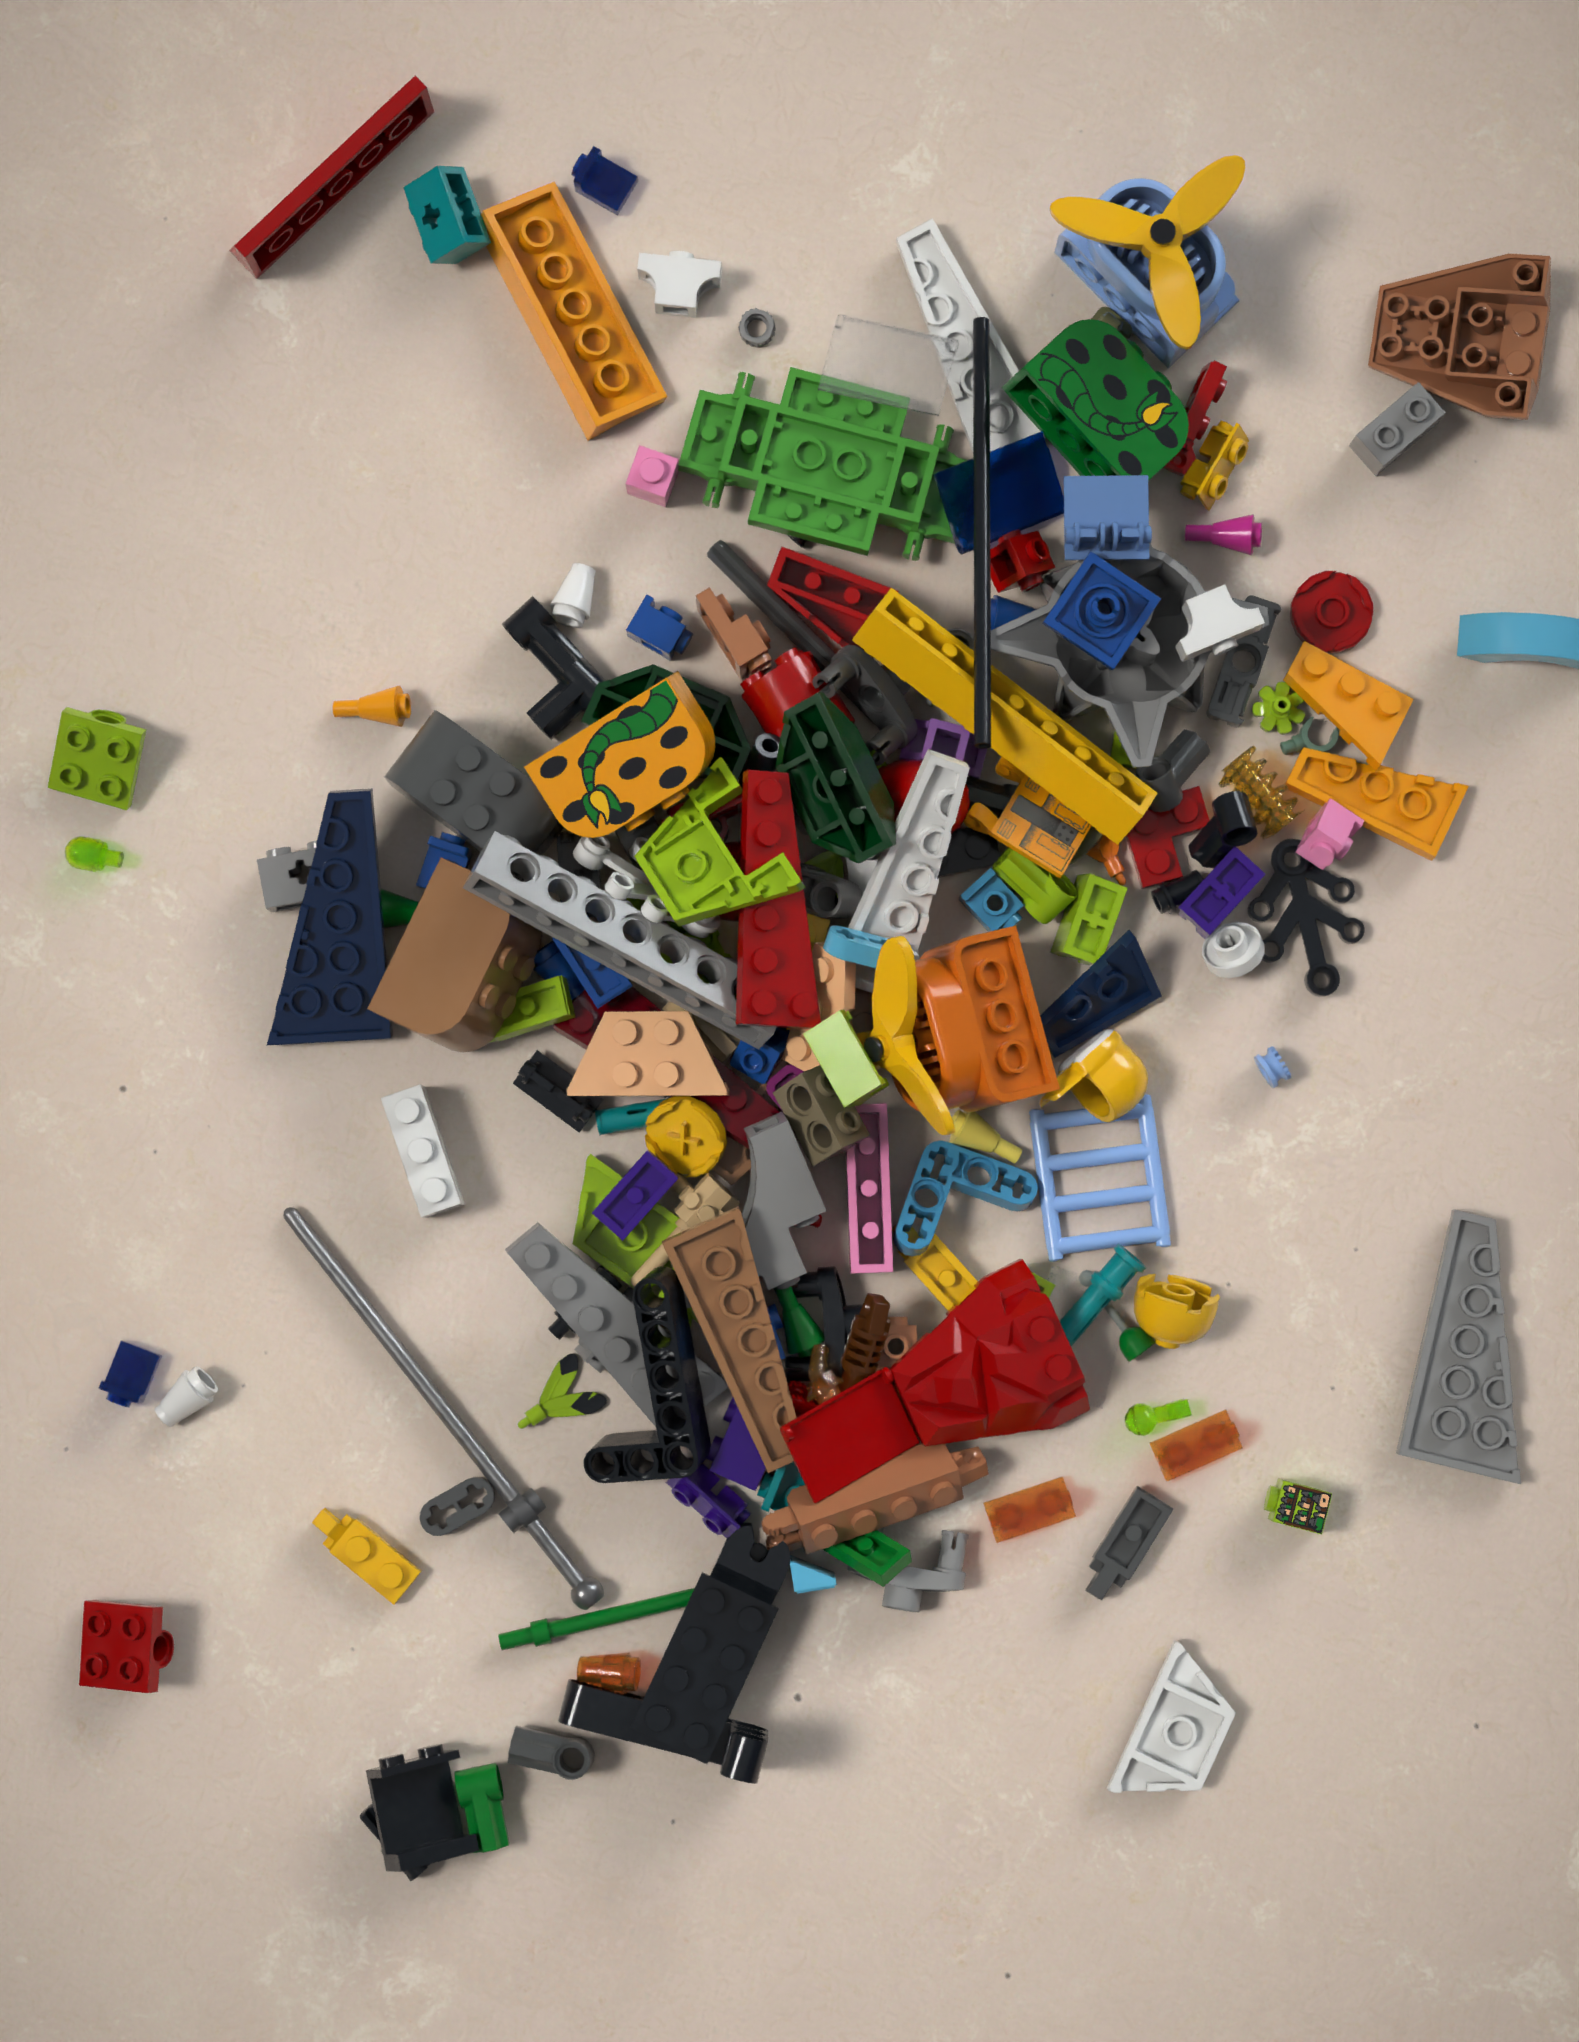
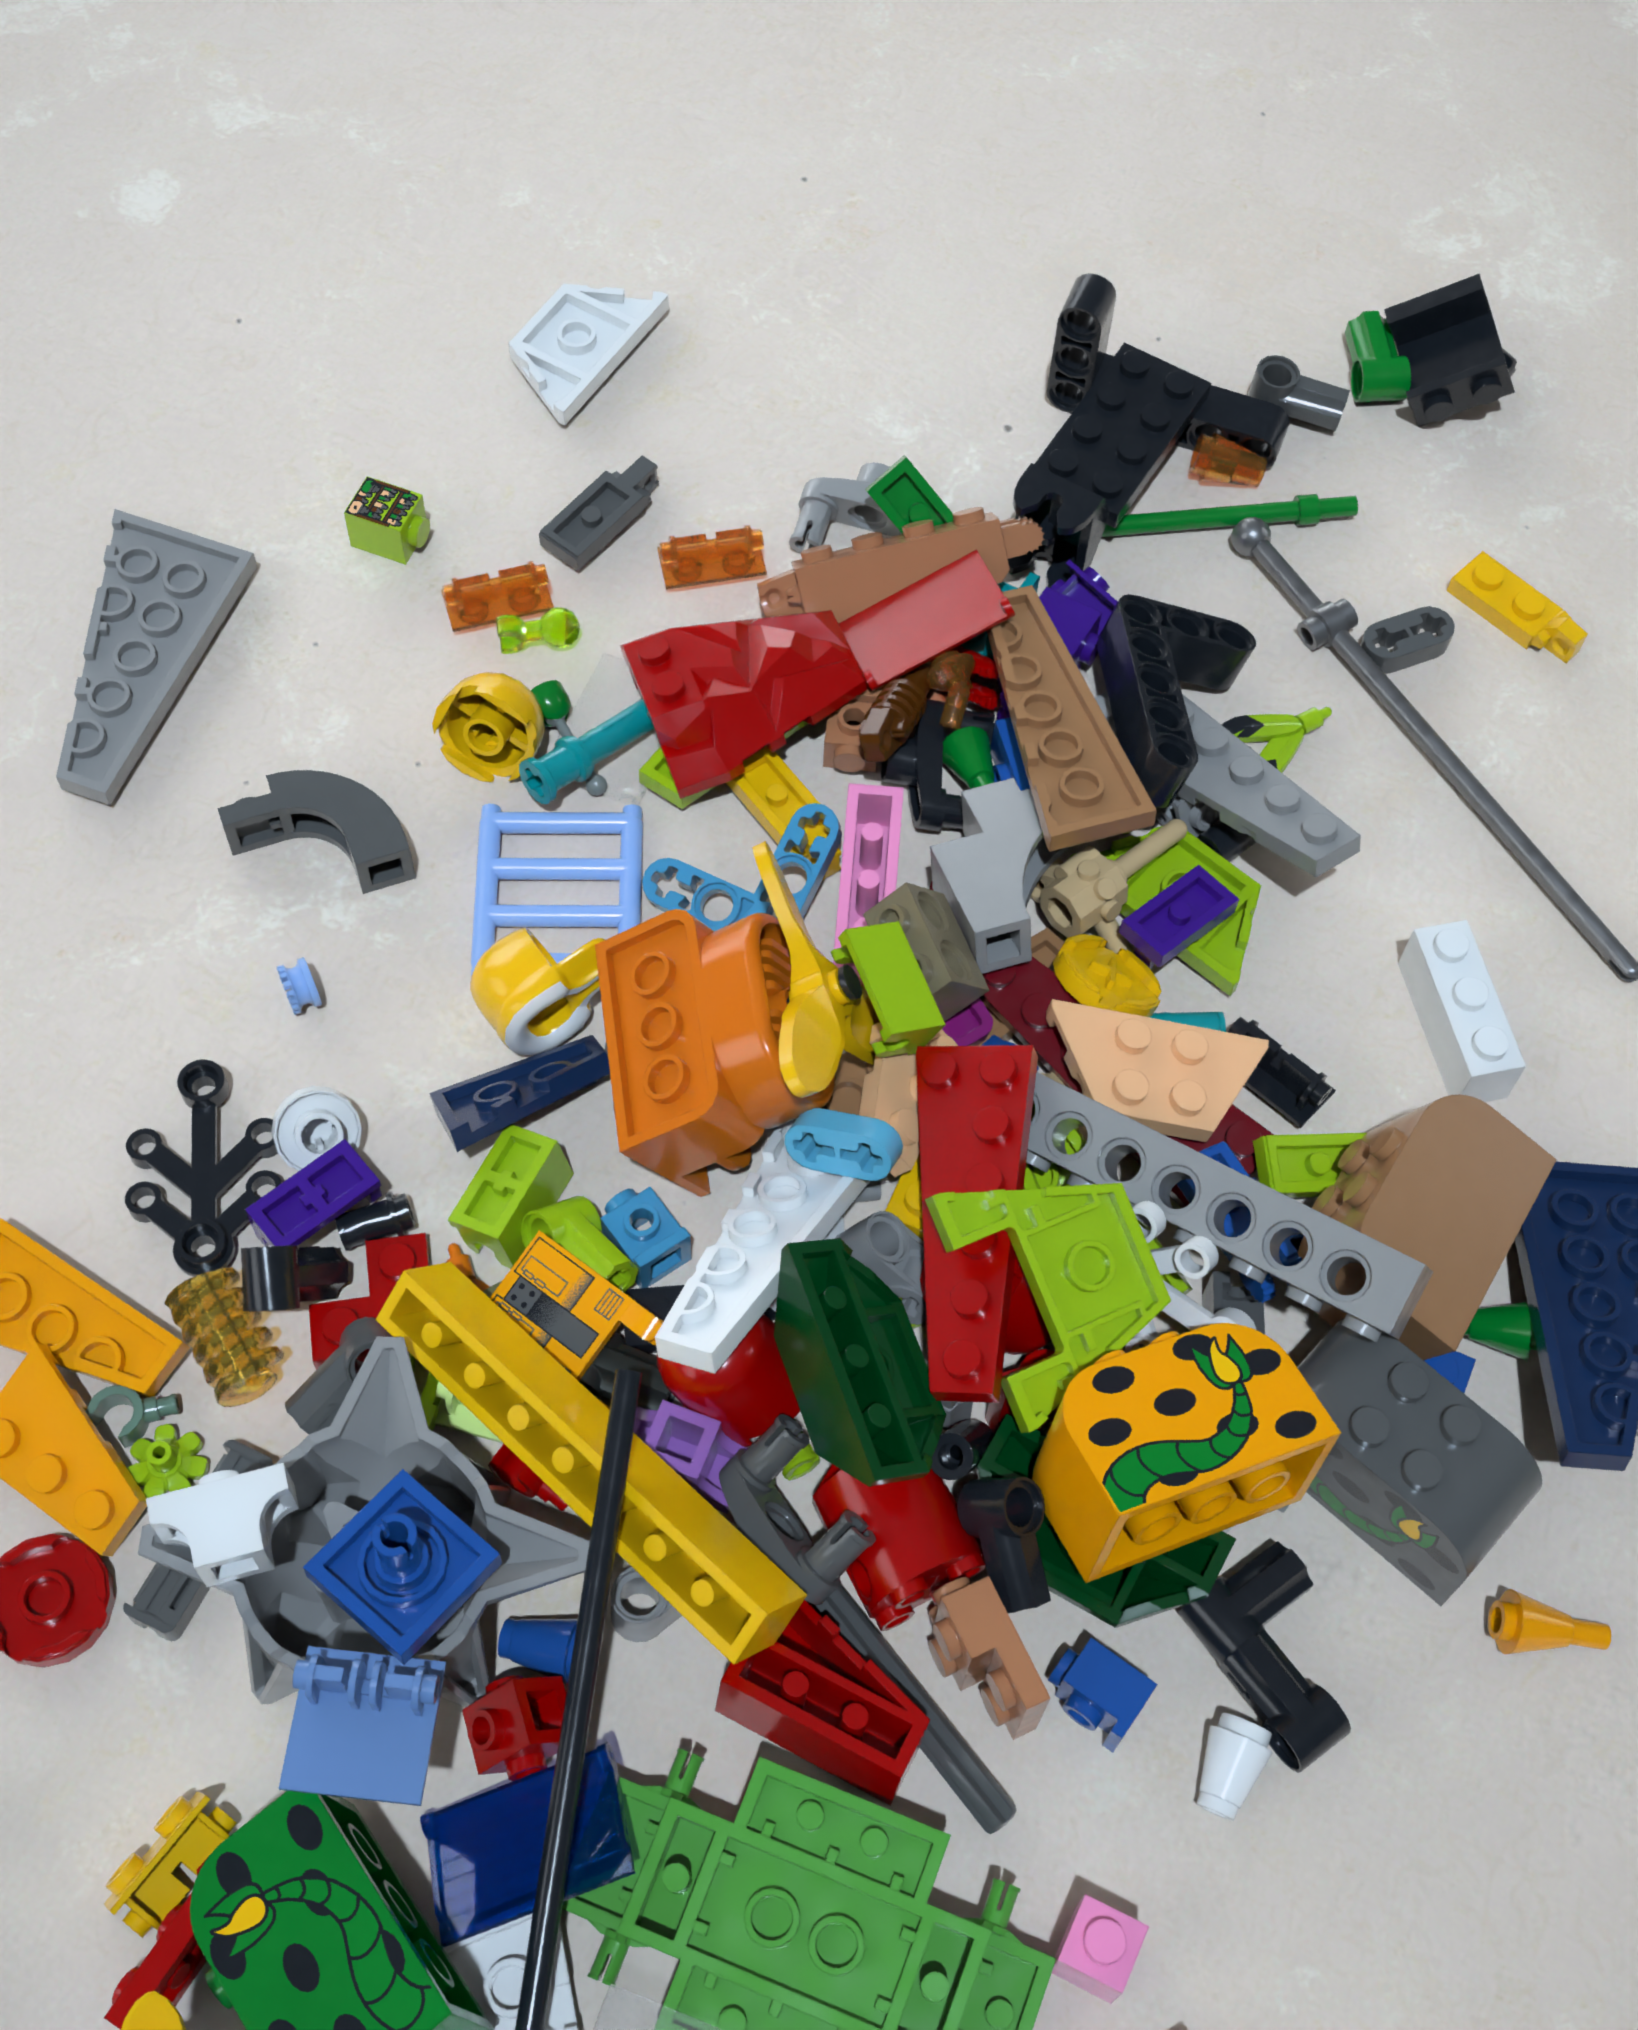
camera: 175 degrees left, 25 degrees down
(728, 701) = (1006, 1519): none -> black piece
(810, 1577) = (986, 486): medium azure slope -> none
(1235, 534) = (166, 1737): dark pink cone -> none
(1257, 1210) = (324, 809): none -> dark grey arch
(1329, 834) = (142, 1258): bright pink brick -> none

